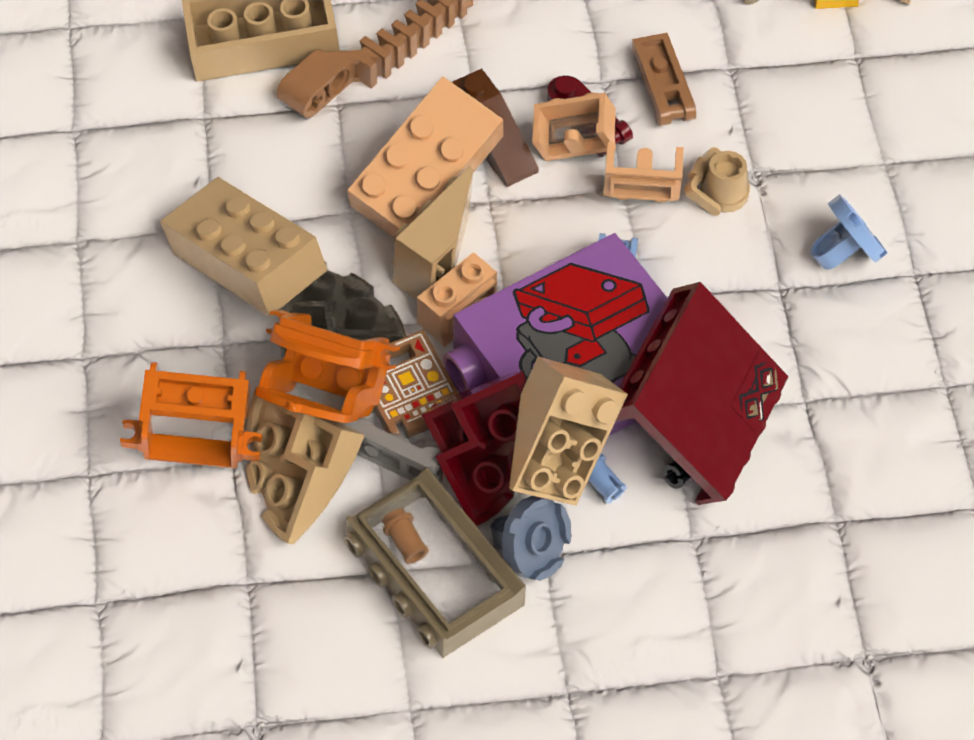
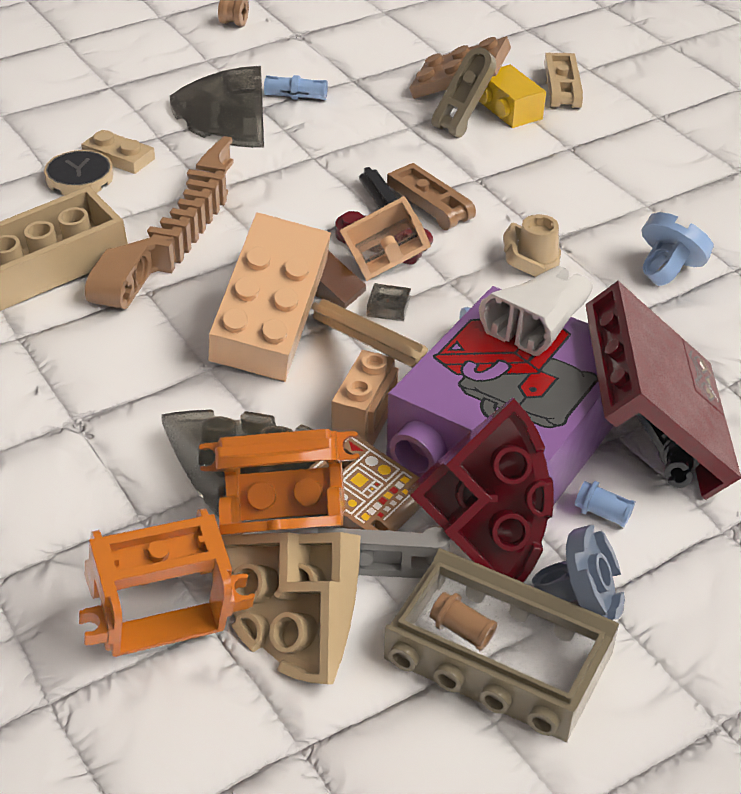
camera: 25 degrees left, 15 degrees down
(244, 246) = (126, 413): tan brick -> none
(434, 239) = (316, 355): tan slope -> none
(491, 233) = (369, 333): none -> tan axle
(548, 195) = (388, 302): none -> clear smoke tile
(562, 429) = (579, 442): tan slope -> none
(617, 66) = (377, 187): none -> black axle
(630, 275) = (535, 309): none -> white piece
(643, 181) = (471, 260): light nougat window -> none

